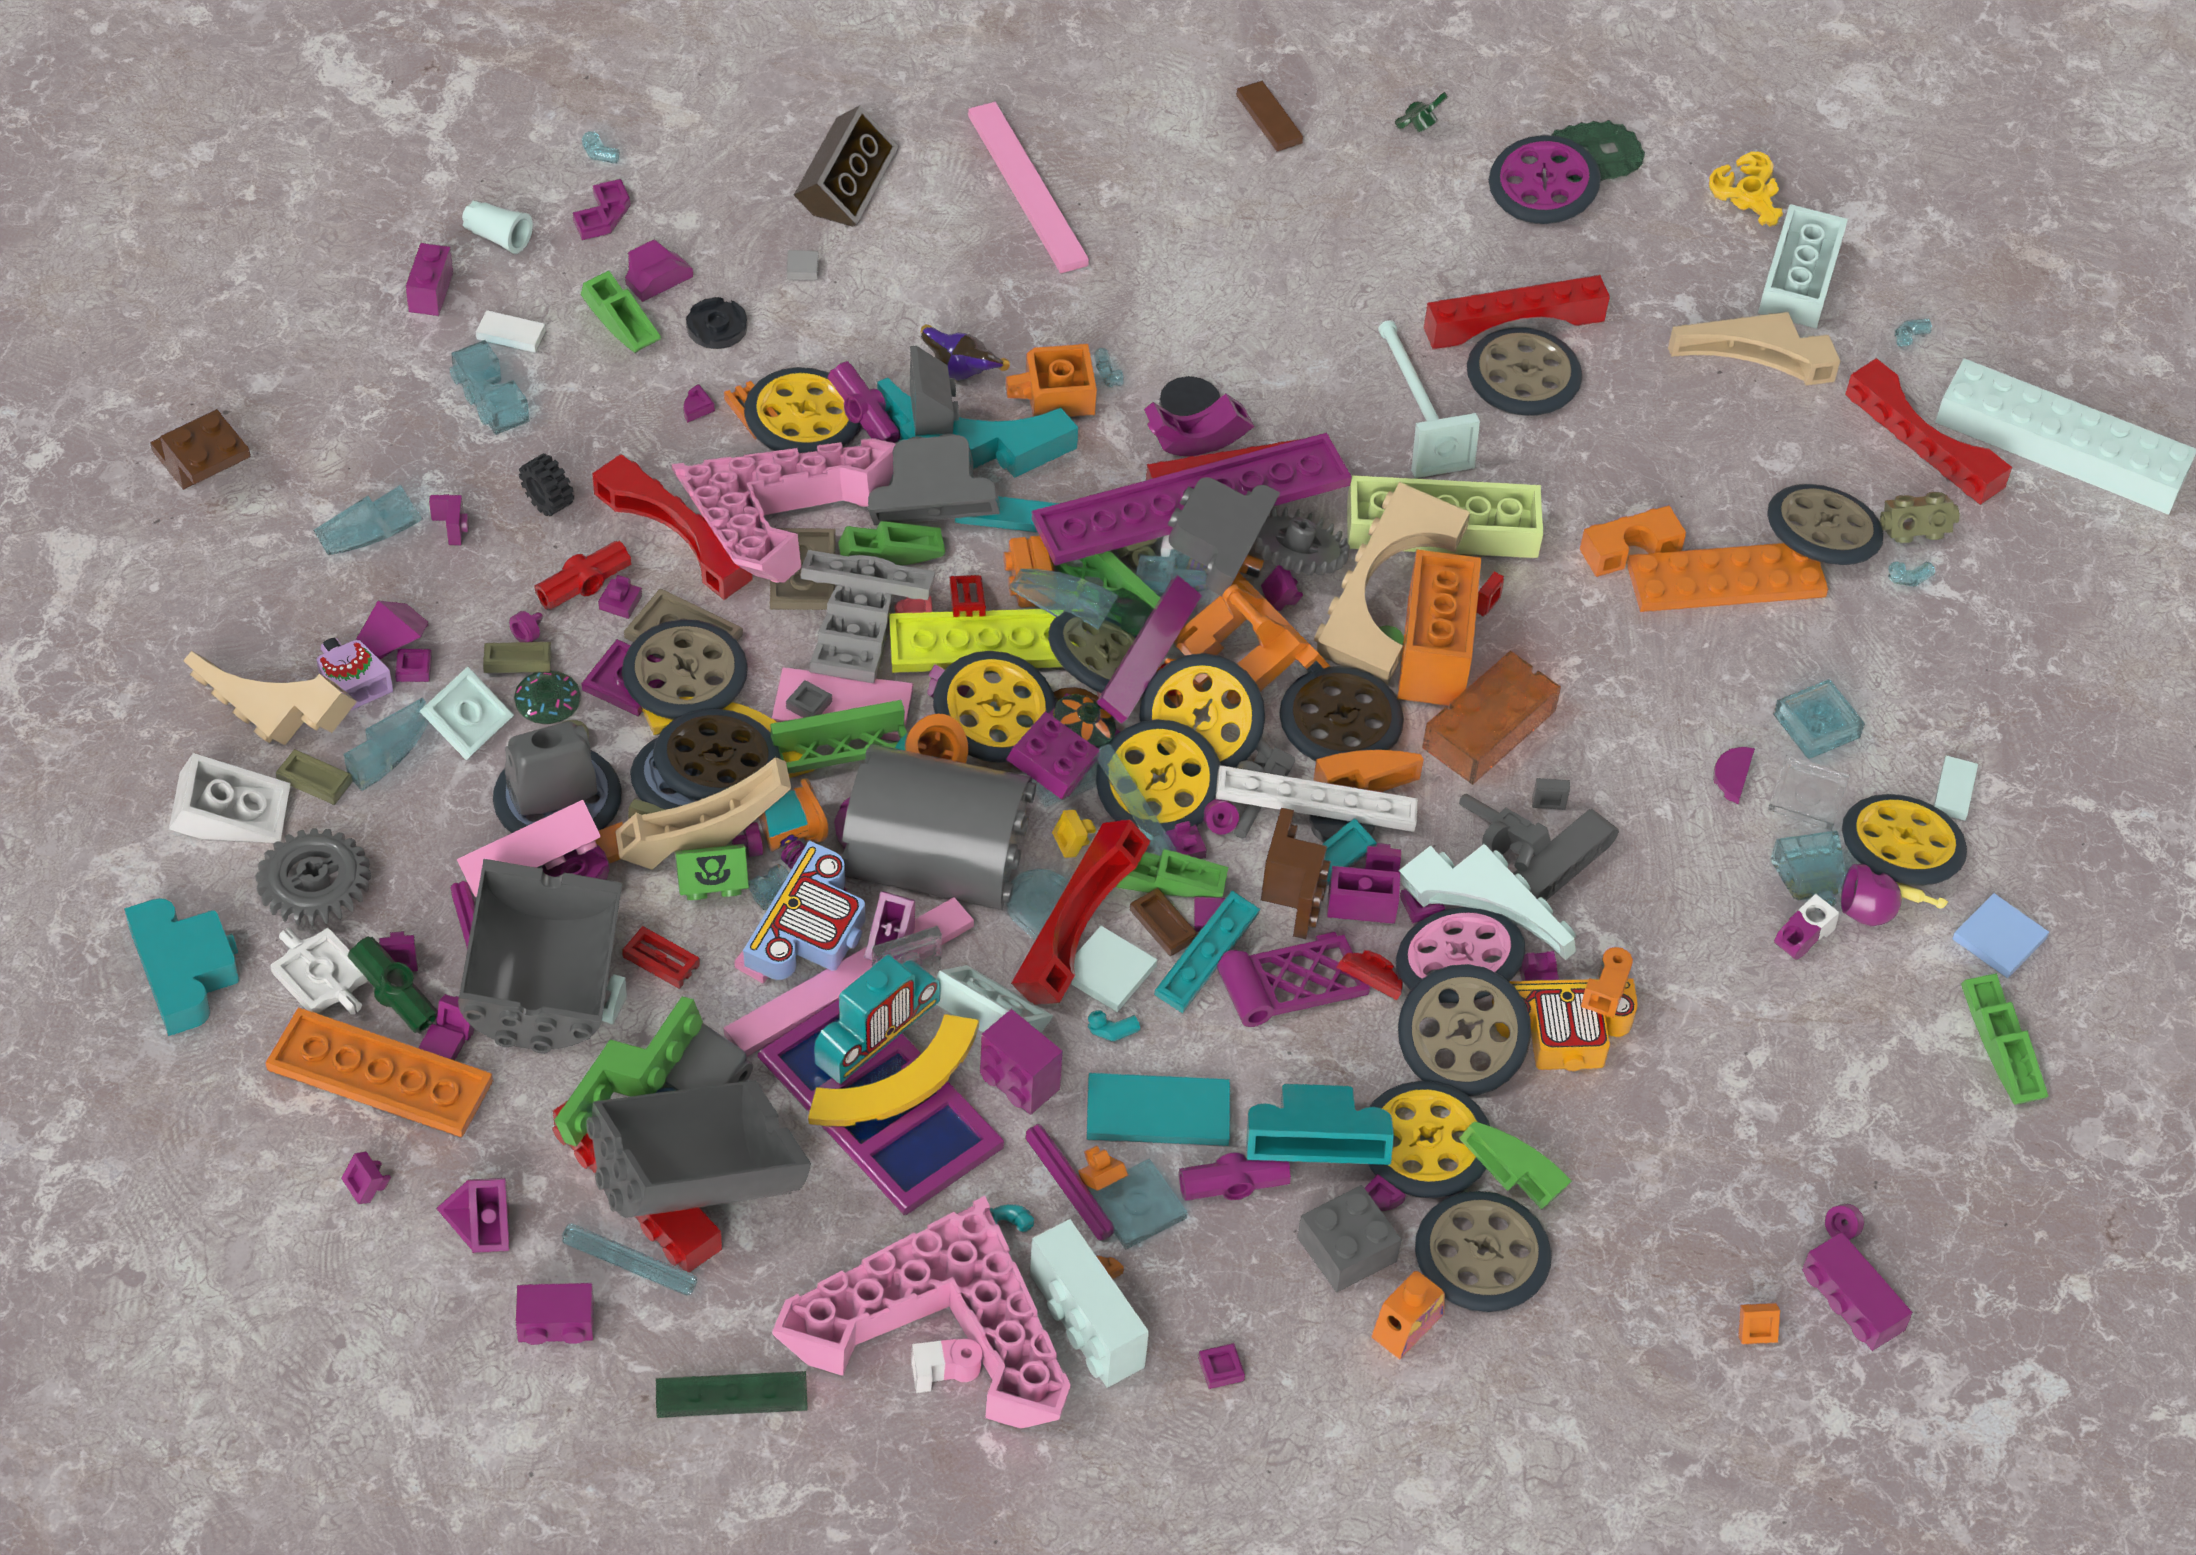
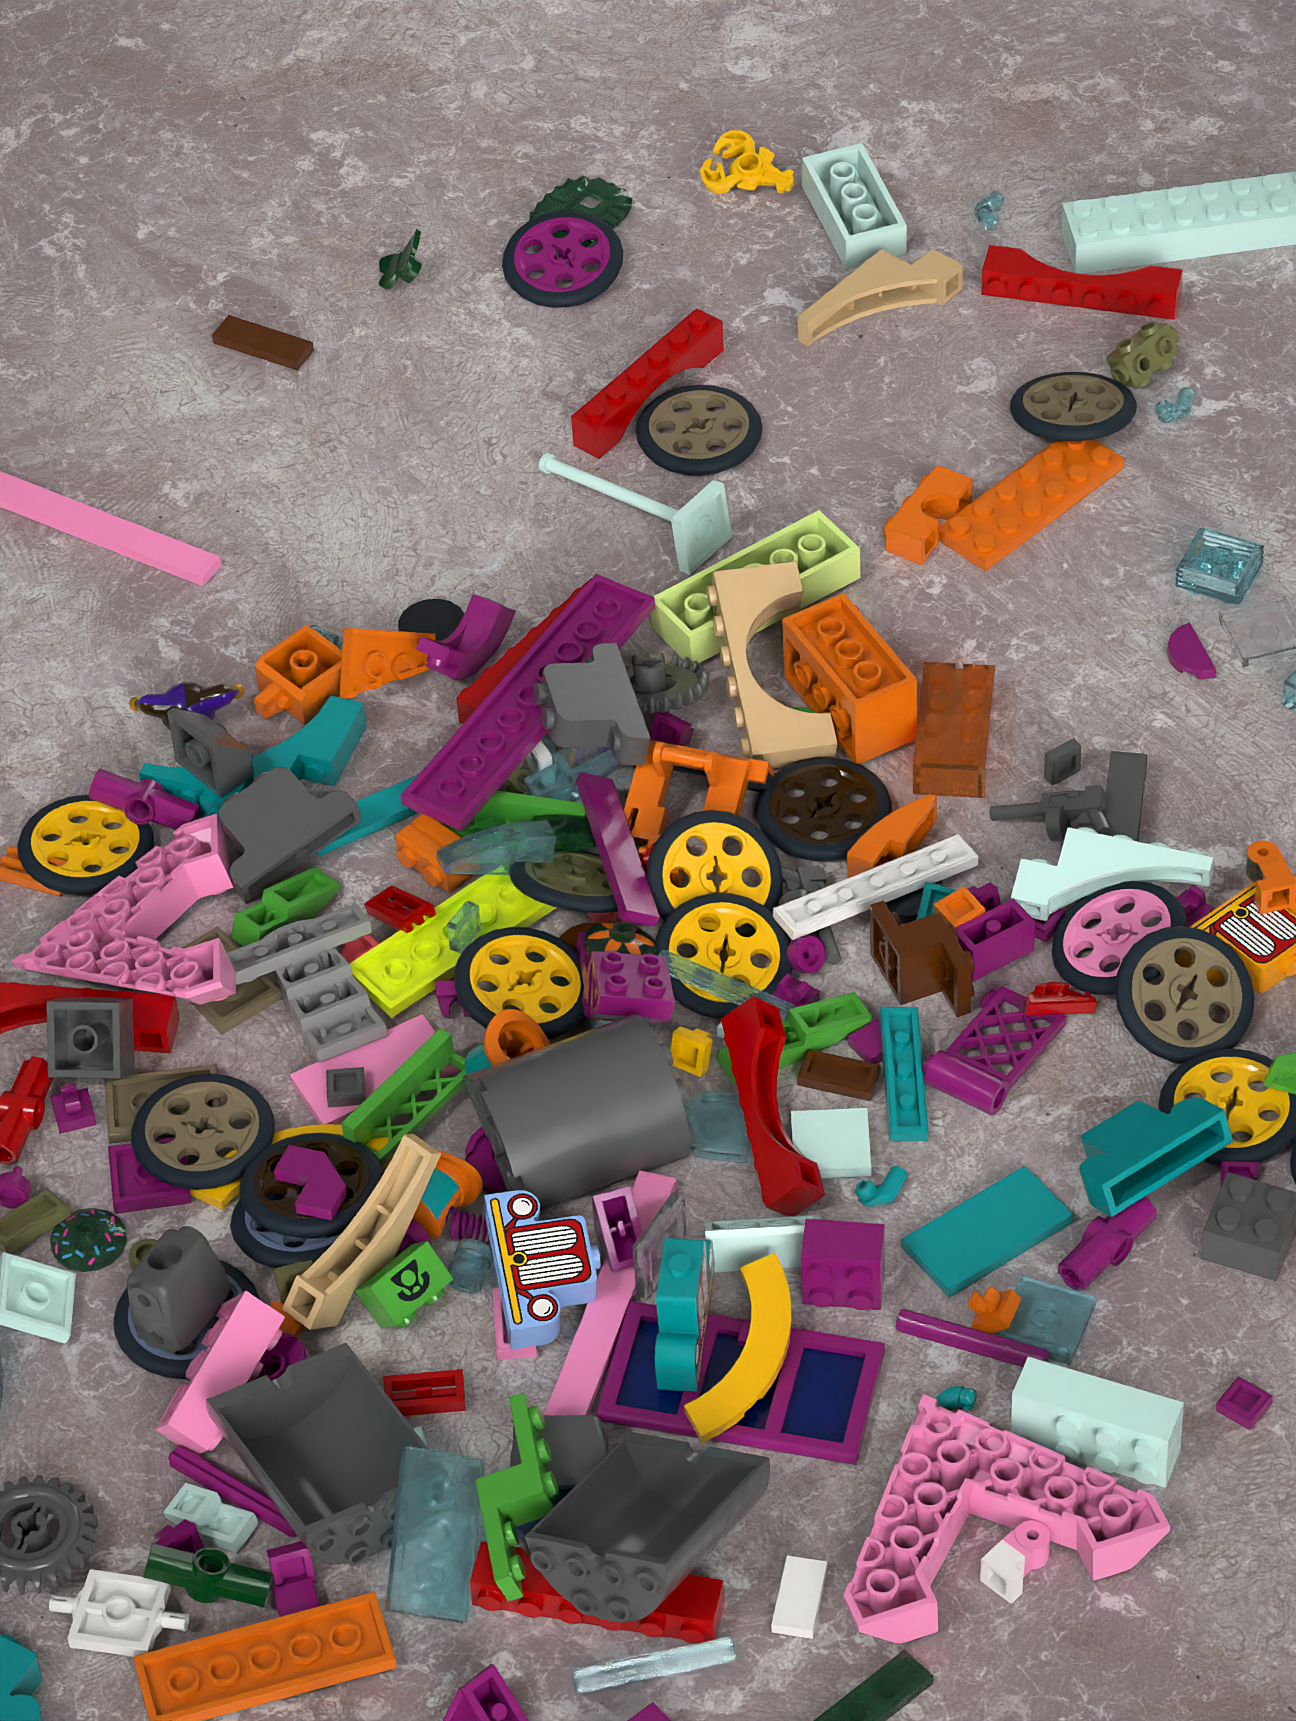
camera: 30 degrees left, 5 degrees down
(440, 946) = (214, 1520): none -> light aqua slope
(555, 1059) = (434, 1535): none -> clear light blue tile
(664, 552) = (90, 1037): none -> dark grey brick
(715, 762) = (322, 1184): none -> magenta tile
(772, 1281) = (799, 1597): none -> white tile
(991, 636) = (464, 926): none -> clear light blue tile
(1116, 399) = (379, 658): none -> orange wing
(1353, 853) = (959, 907): none -> orange tile

